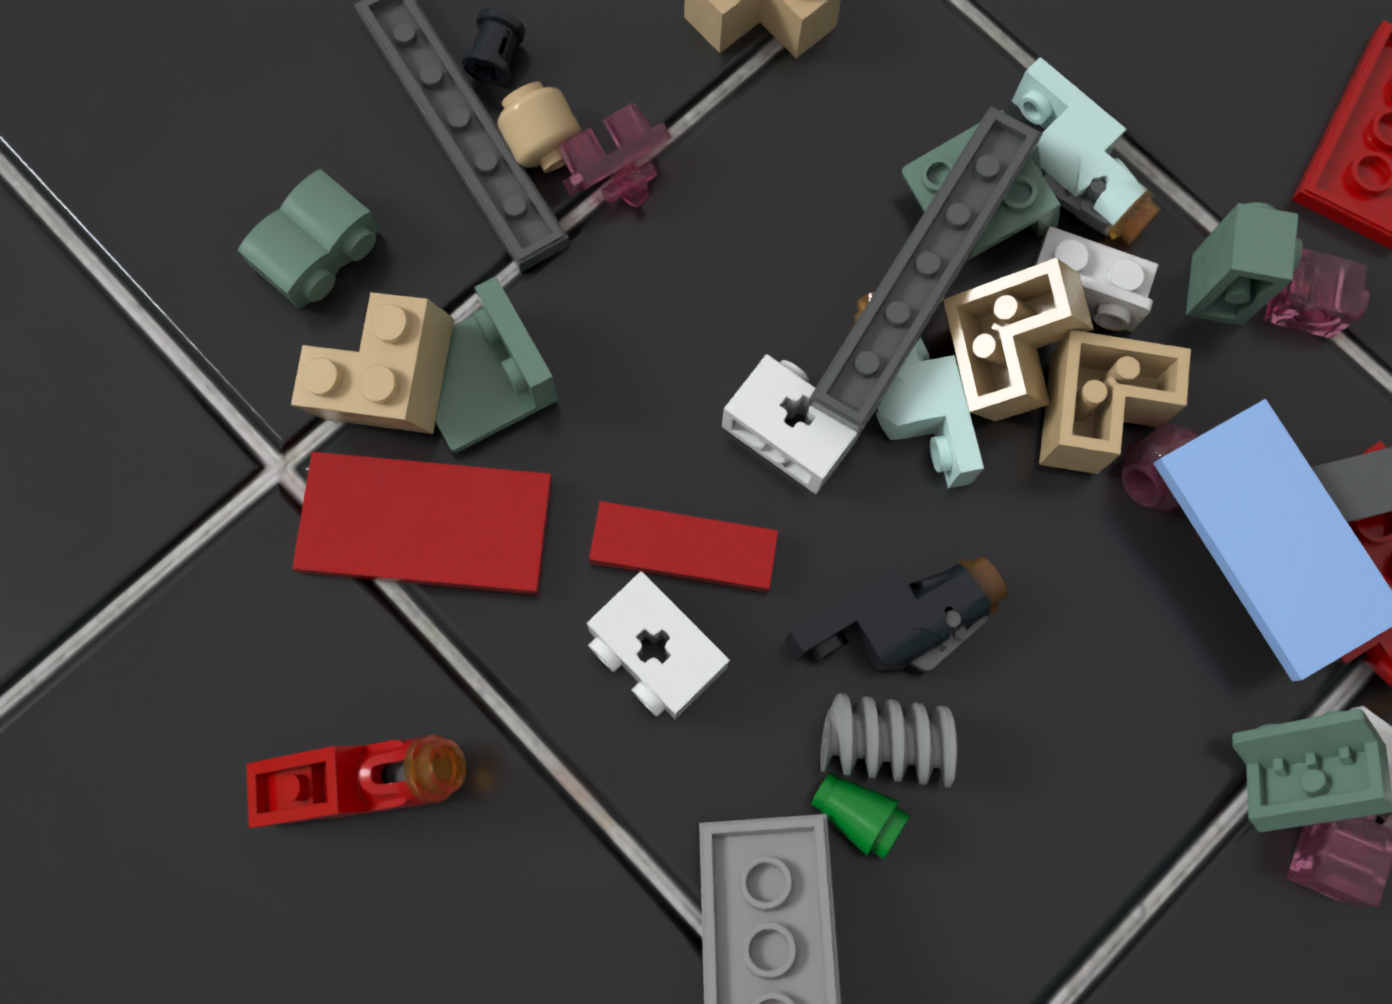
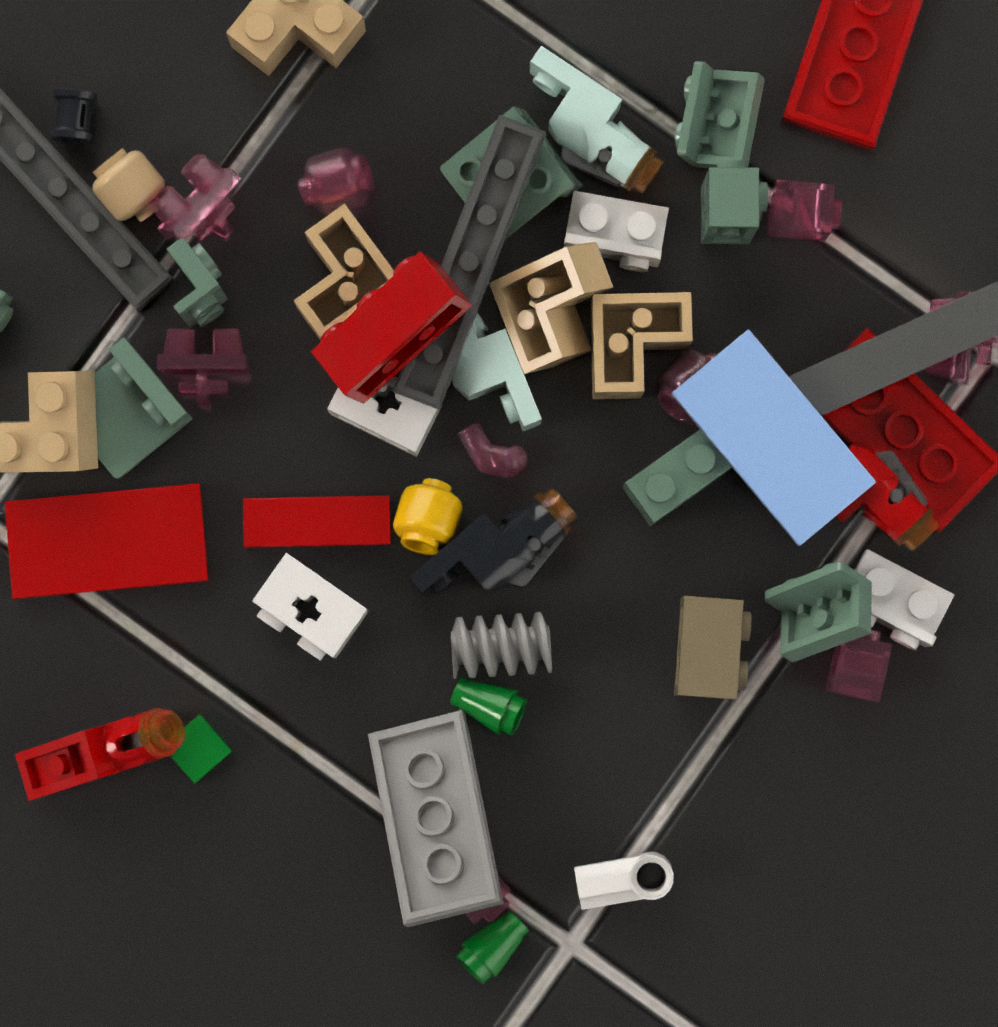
camera: 10 degrees left, 10 degrees up
(482, 802) = (200, 749): none -> green tile
(584, 343) = (180, 359): none -> clear pink hips
(598, 253) = (205, 301): none -> sand green bracket
(778, 165) = (335, 180): none -> clear pink head
(784, 268) = (354, 269): none -> tan brick
(821, 563) = (427, 516): none -> yellow head
(825, 316) = (390, 327): none -> red brick
(910, 510) = (492, 458): none -> clear pink arm
(1137, 570) = (676, 477): none -> sand green brick
(1158, 793) = (710, 647): none -> dark tan brick
(1227, 169) = (718, 115): none -> sand green bracket

